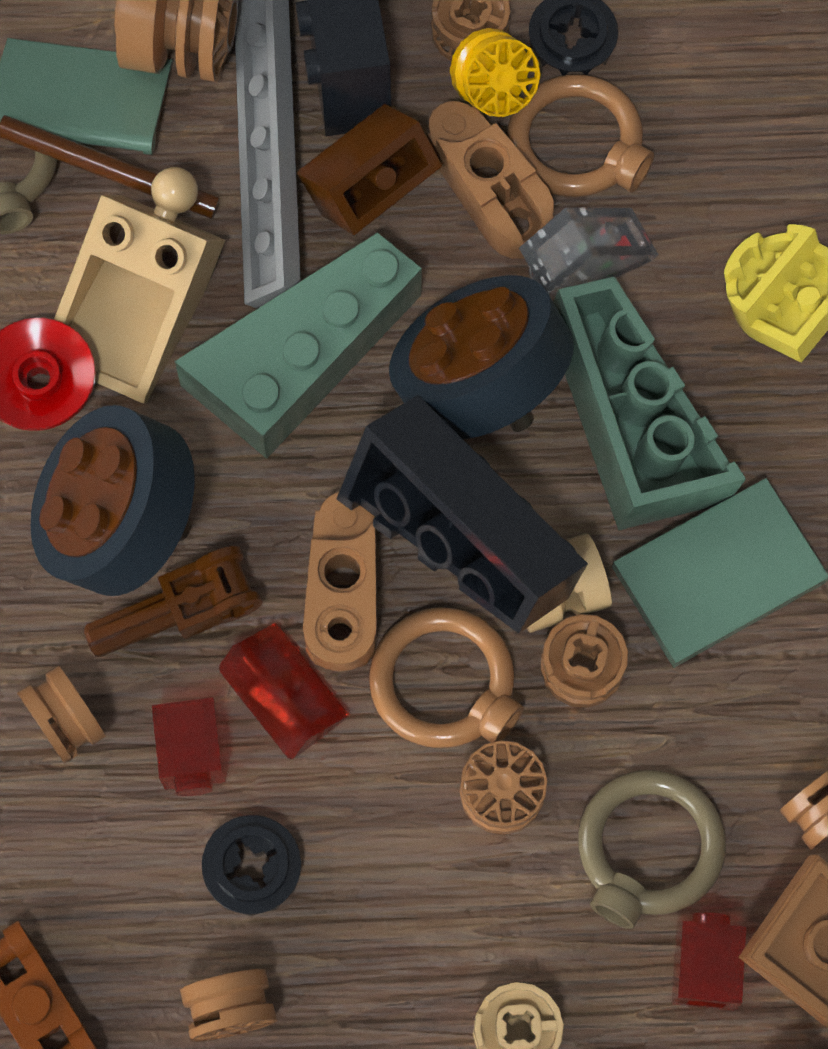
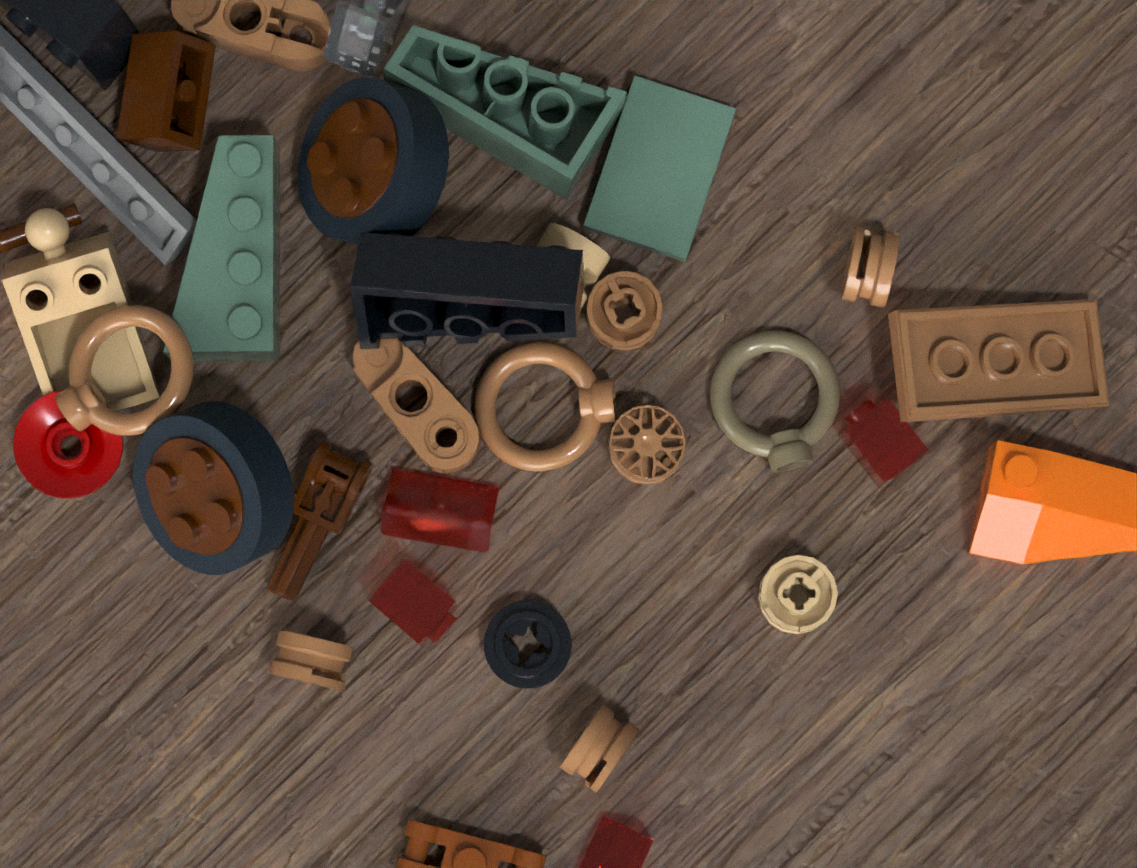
camera: 40 degrees left, 10 degrees up
(77, 349) = (82, 400): none -> medium nougat piece

